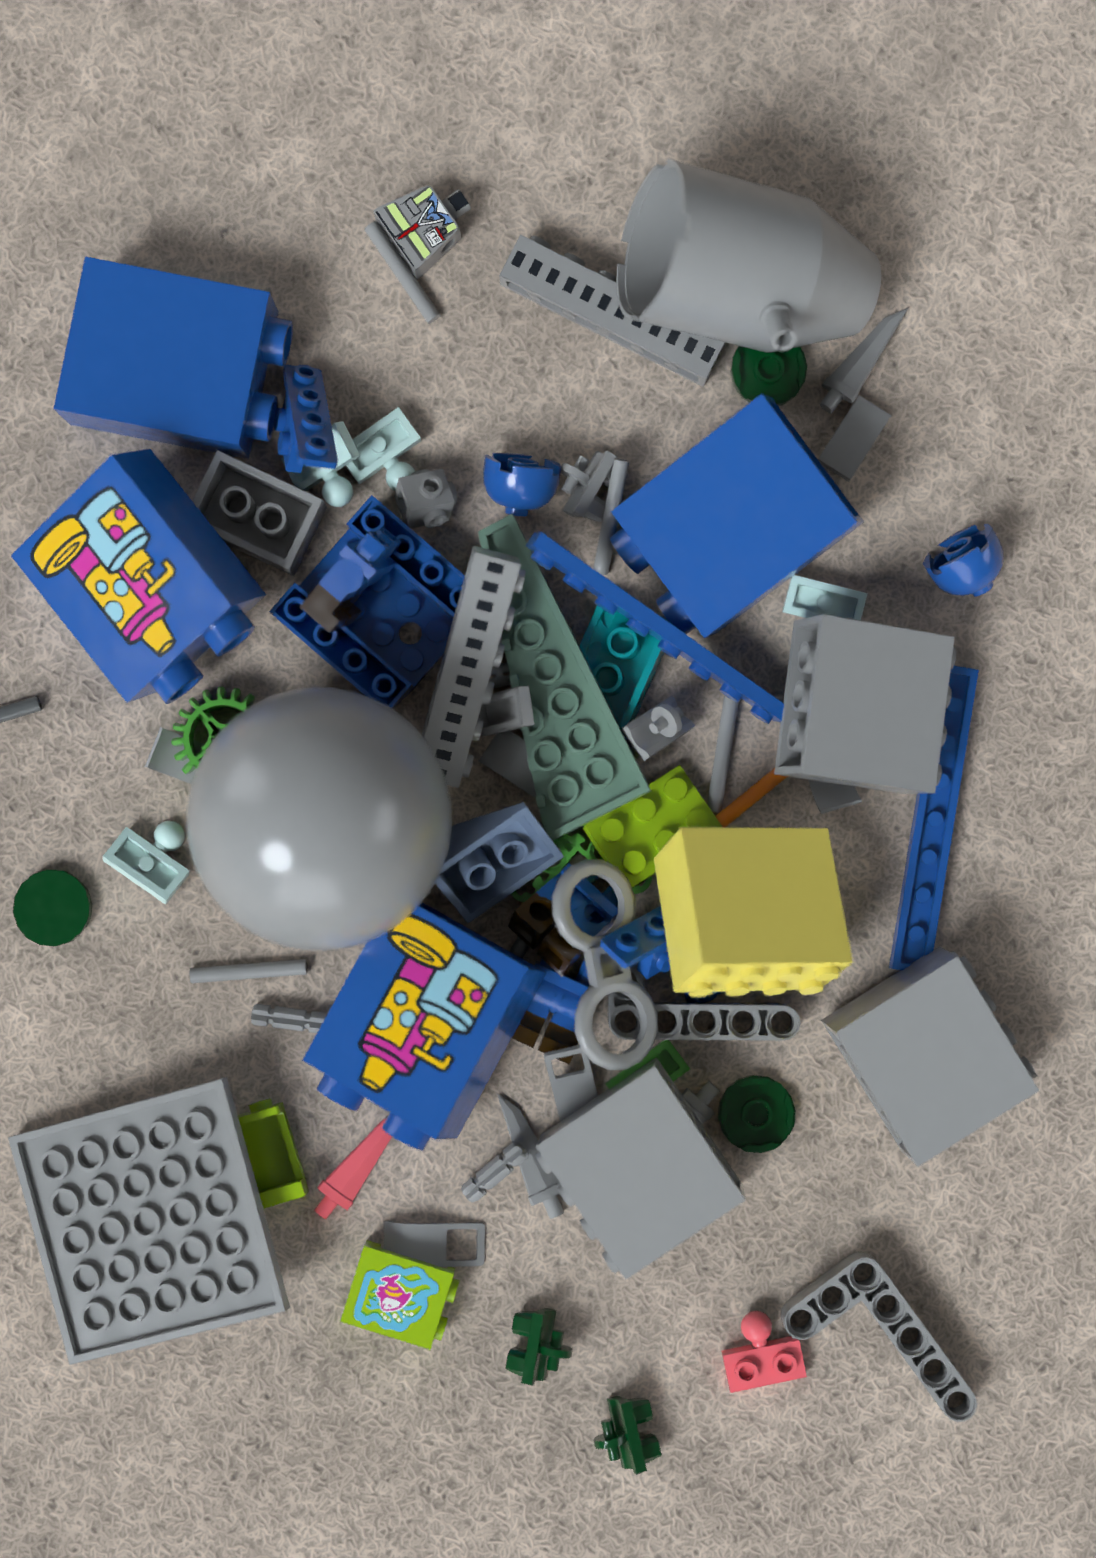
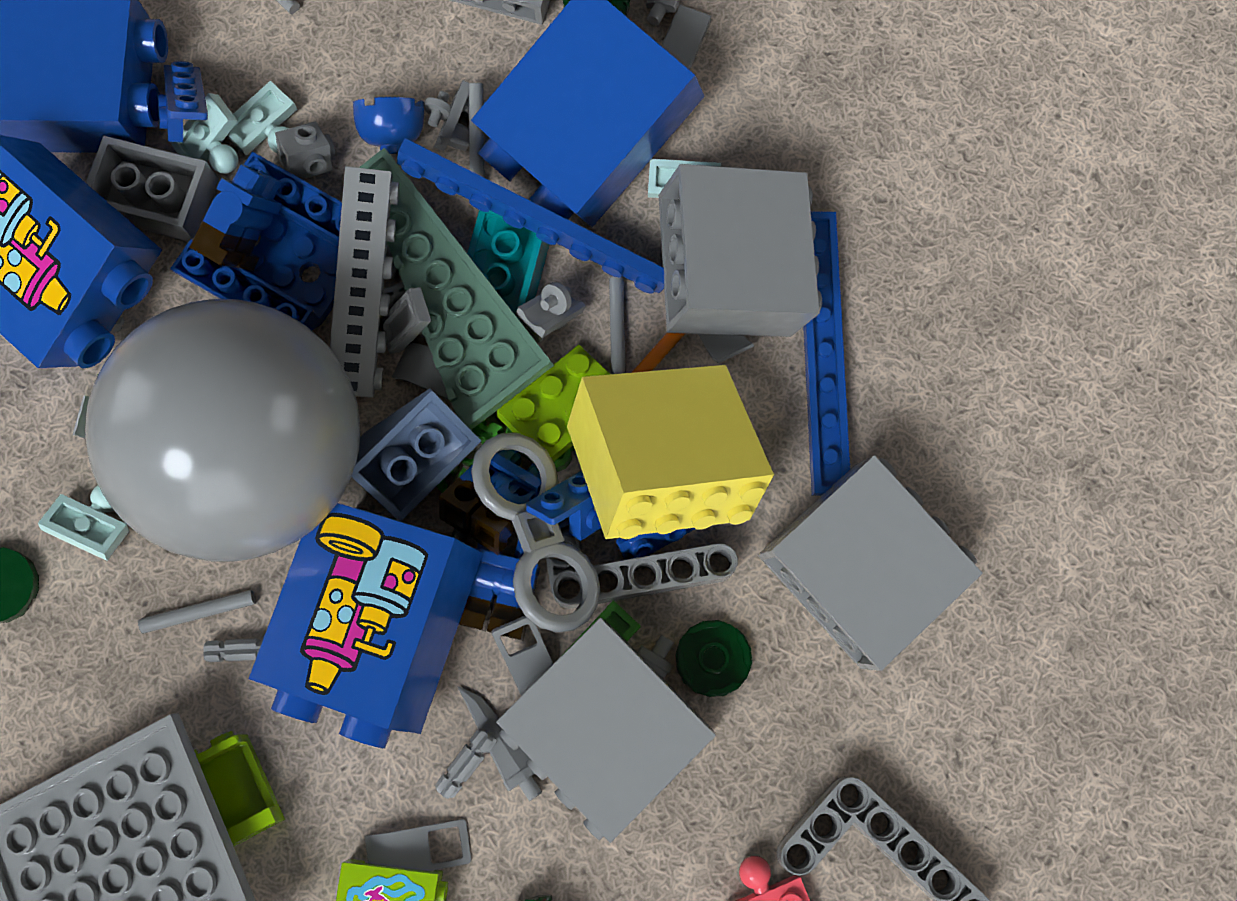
camera: 10 degrees left, 10 degrees down
(347, 1179) = (323, 795): coral bar -> none
(968, 562) = (806, 122): blue cylinder -> none

